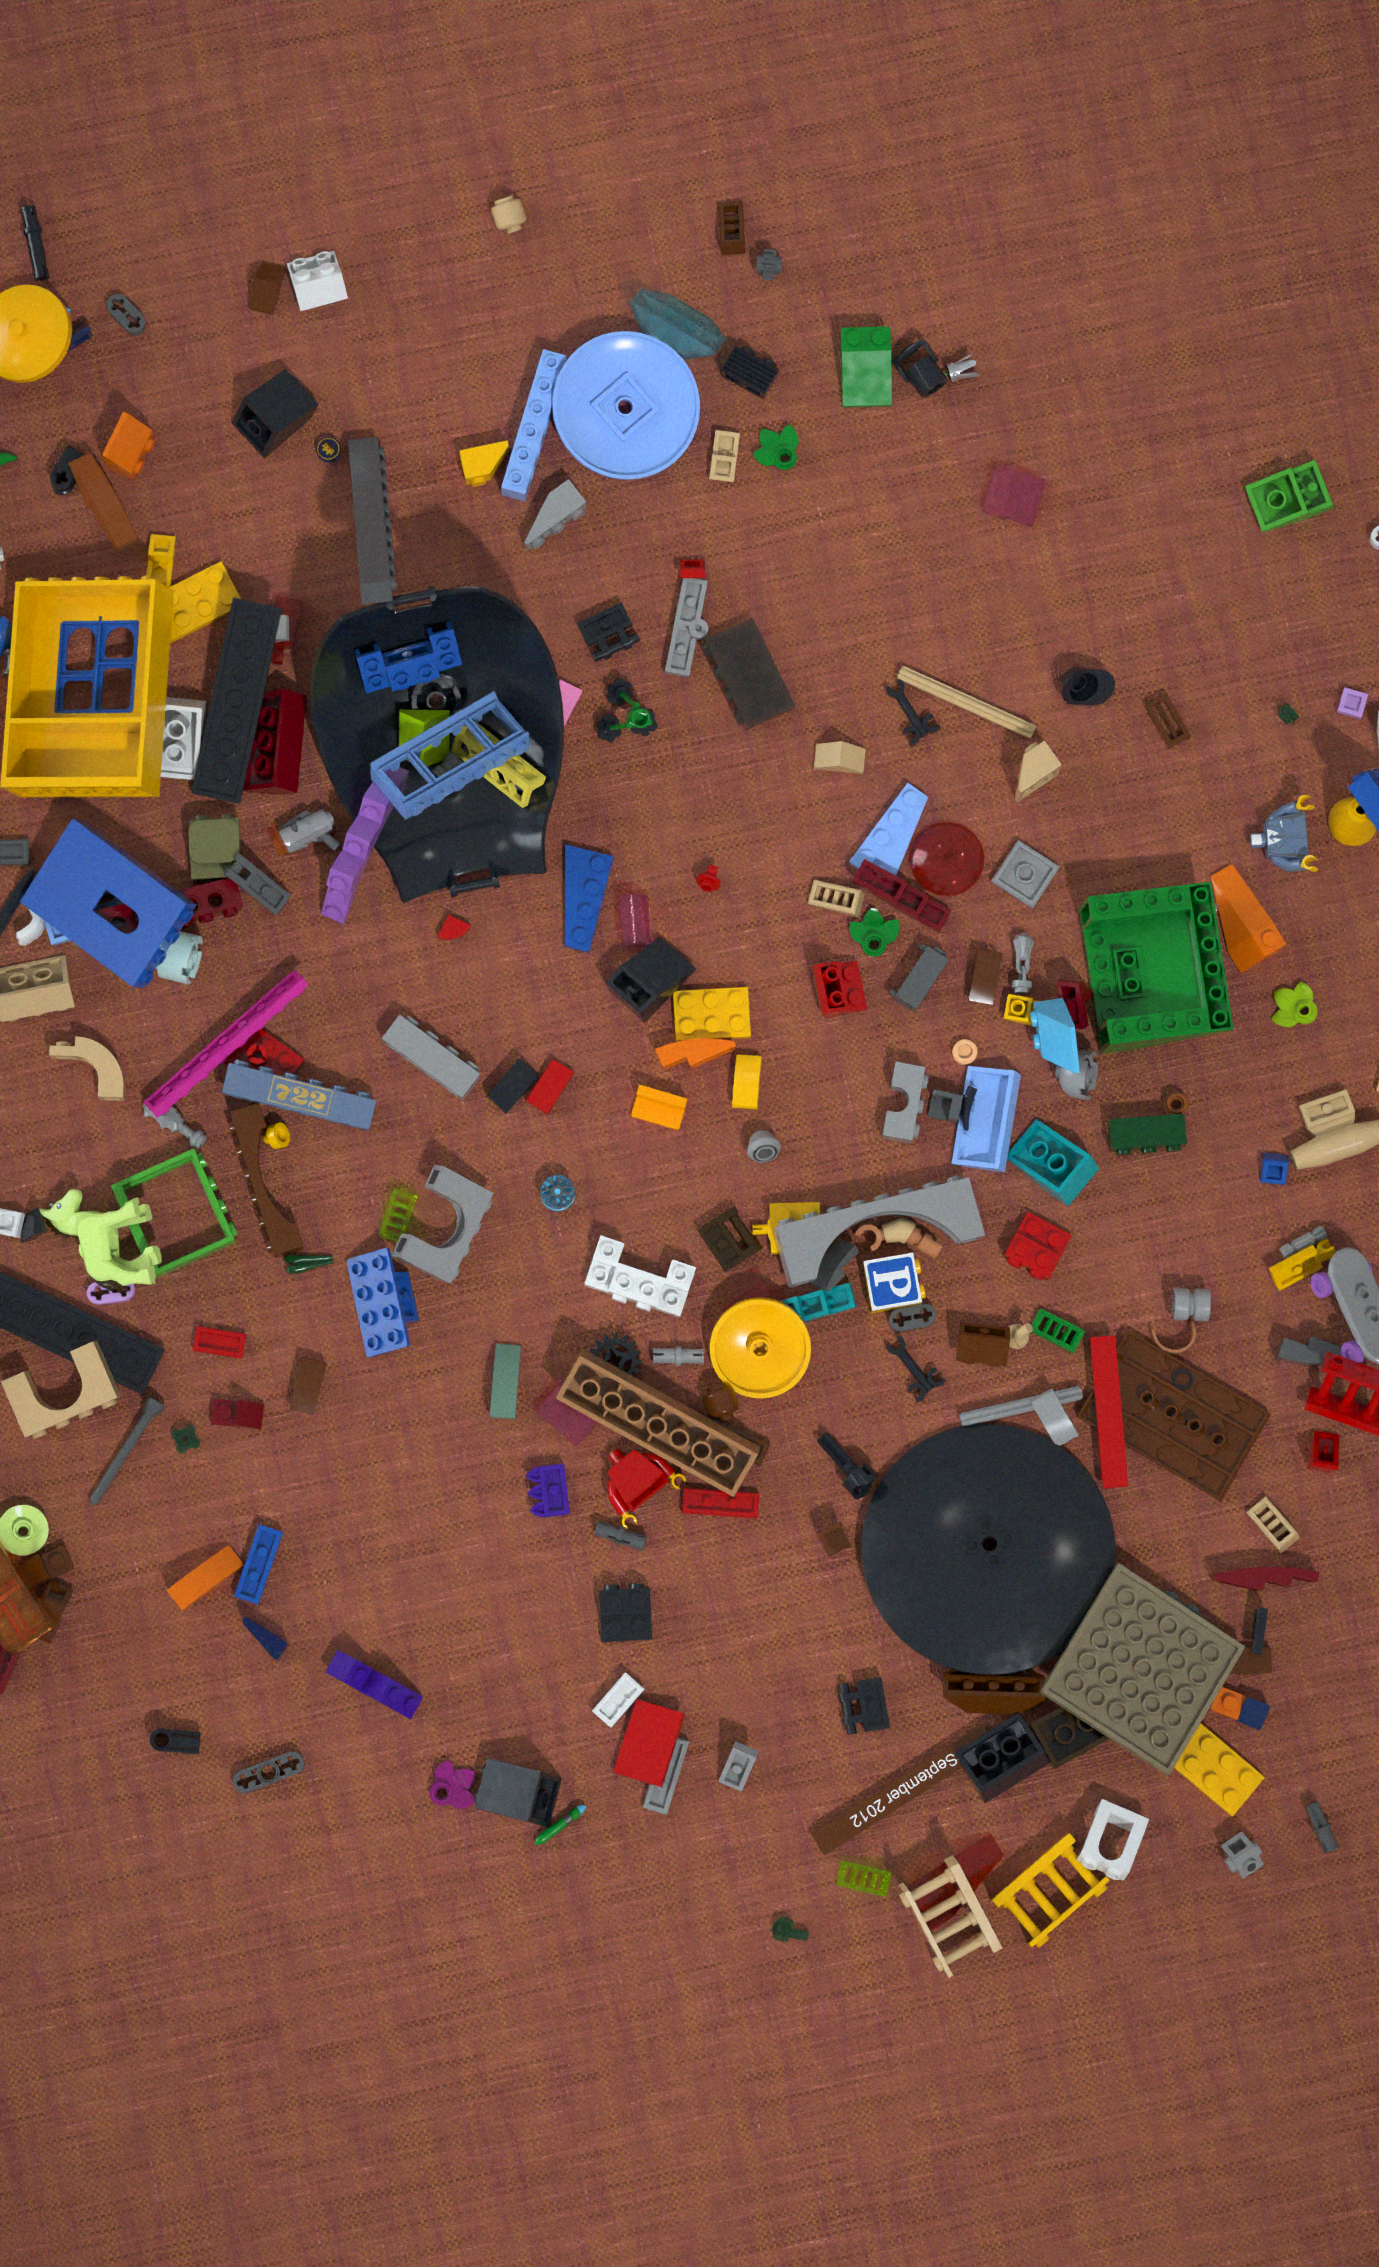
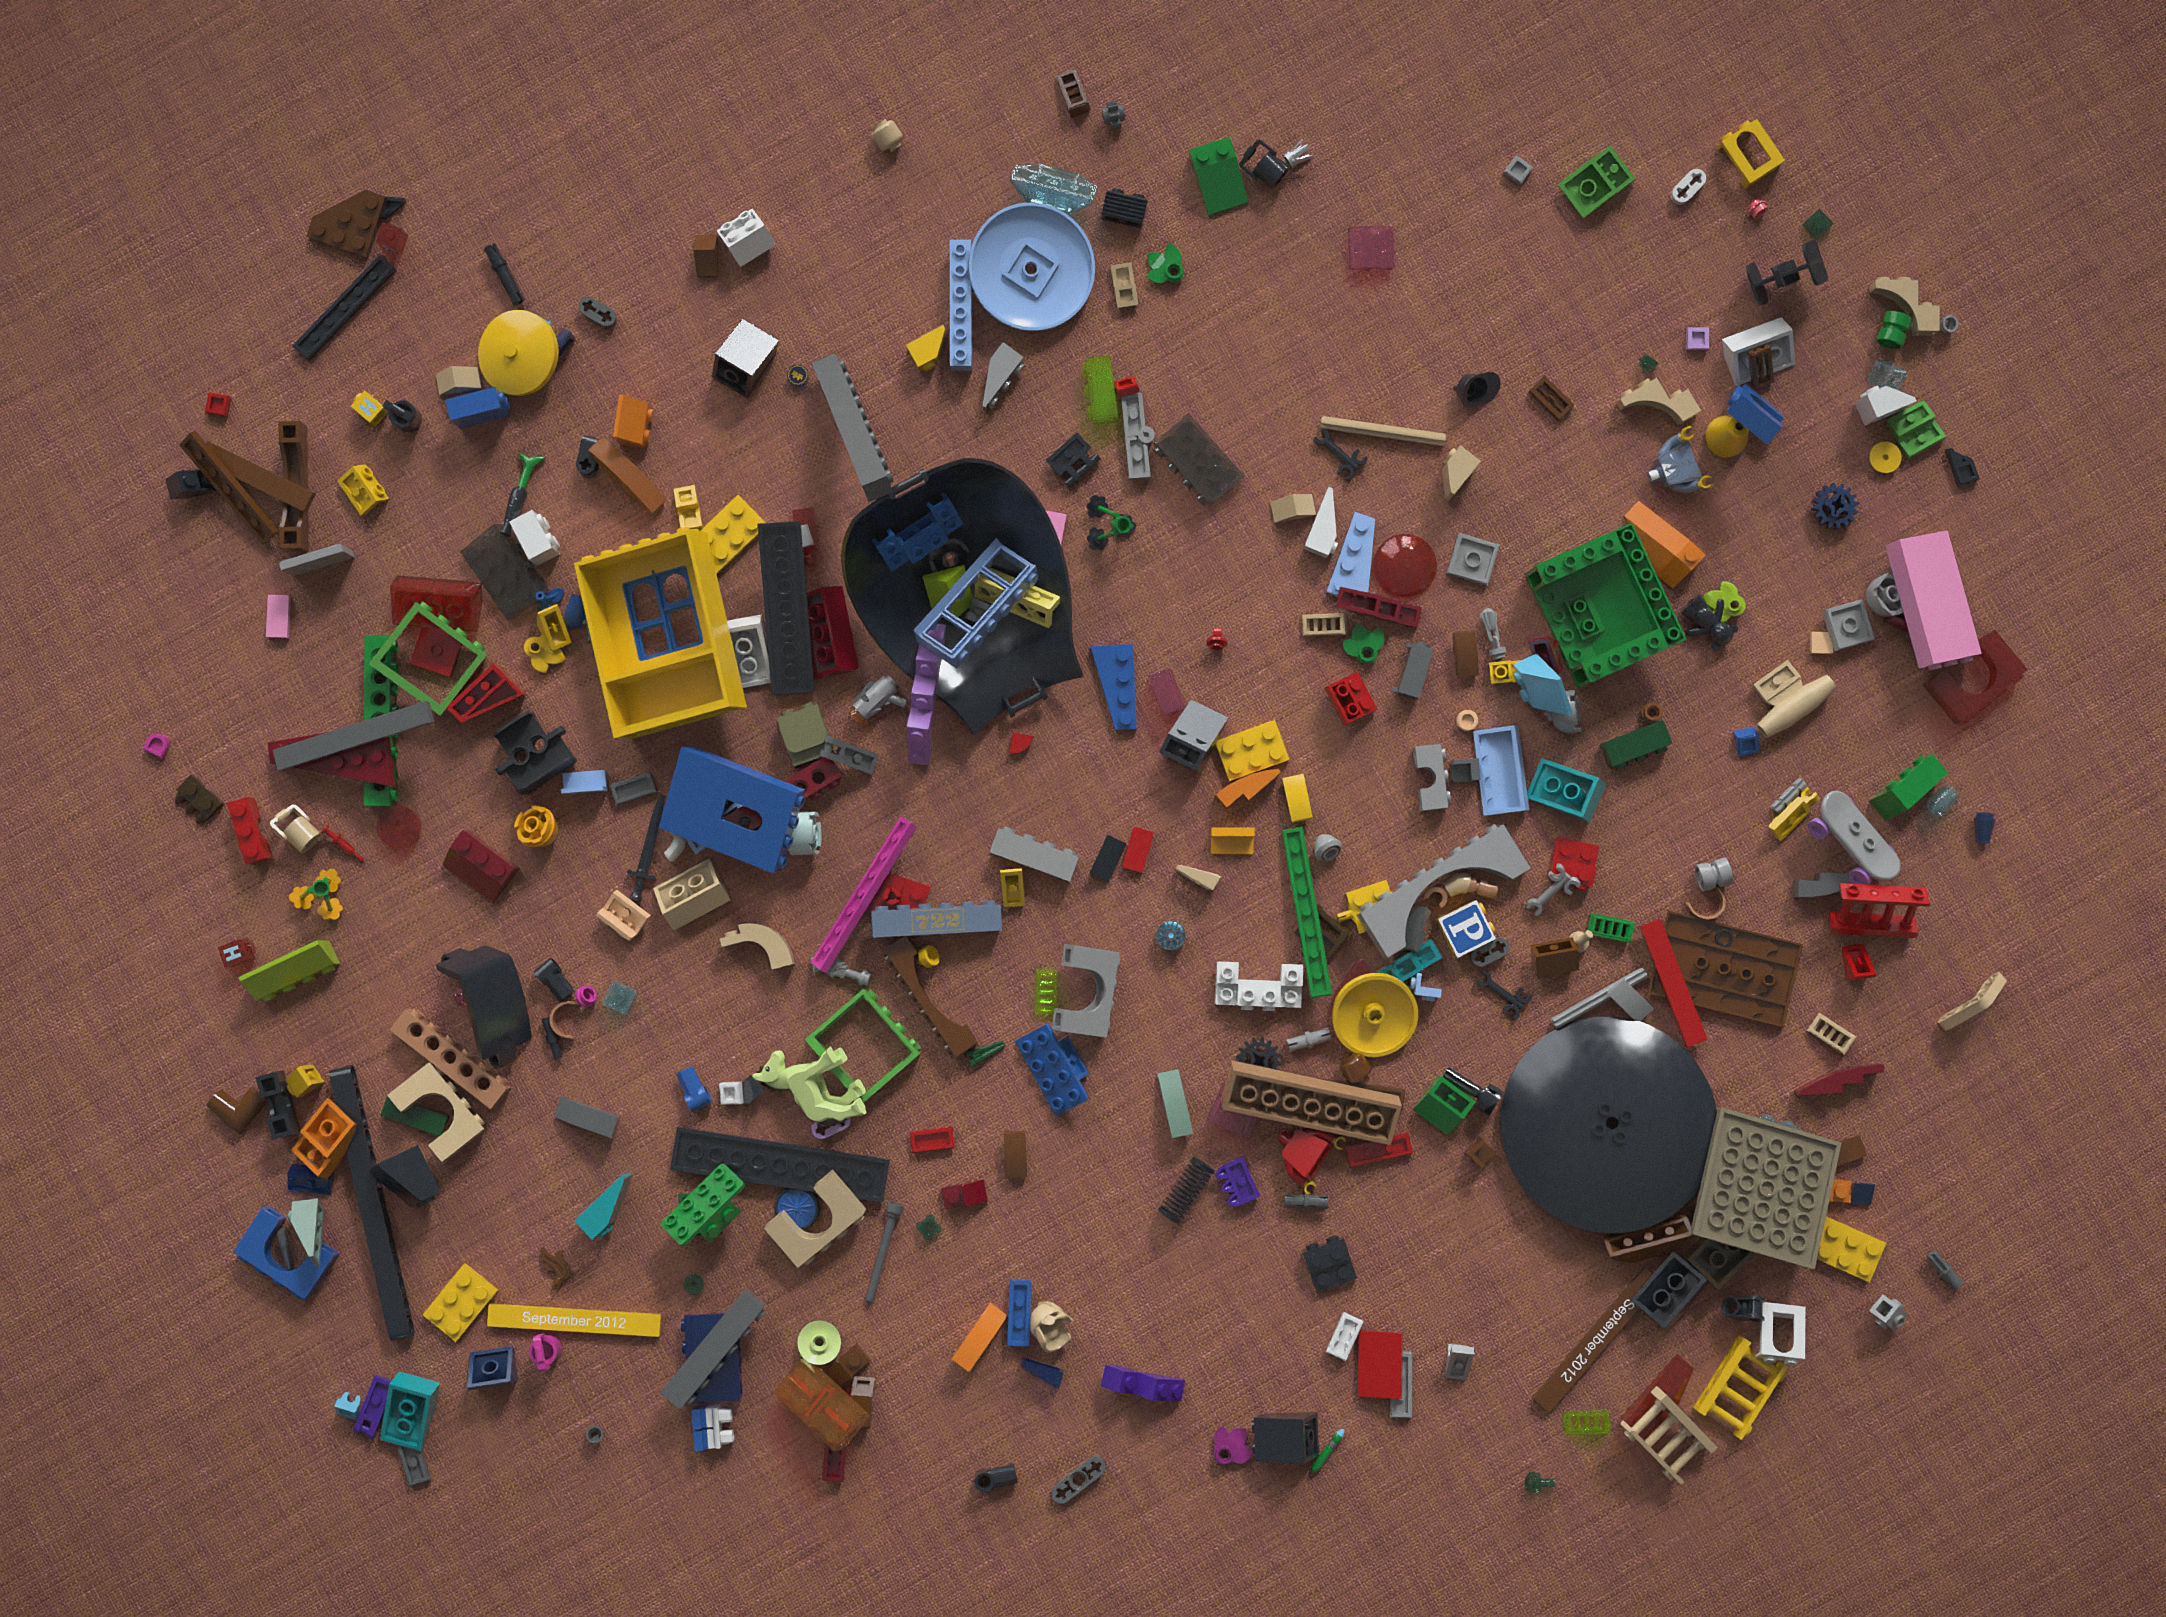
camera: 10 degrees left, 5 degrees up
(47, 1371) = (799, 1205): none -> blue wheel
(286, 1588) = (1048, 1326): none -> tan helmet
(395, 1086) = (1012, 887): none -> yellow slope
(456, 1494) = (1170, 1214): none -> black piece
(610, 1137) = (1203, 878): none -> tan slope
(662, 563) = (1100, 390): none -> clear neon green brick
(718, 1211) = (1307, 912): none -> green tile
(808, 1472) = (1444, 1105): none -> green slope
(827, 1342) = (1427, 993): none -> light blue bracket
(863, 795) = (1323, 532): none -> white slope
(872, 1706) = (1551, 1278): black plate -> none
(967, 1103) = (1483, 762): black helmet -> none
(1015, 1258) = (1562, 879): none -> light grey bar
(1079, 1800) = (1748, 1308): none -> black piece
(1205, 458) = (1517, 170): none -> light grey tile
(1258, 1631) = (1847, 1124): black tile -> none
(1271, 1022) = (1709, 622): none -> black piece
(1279, 747) = (1680, 405): none -> tan arch

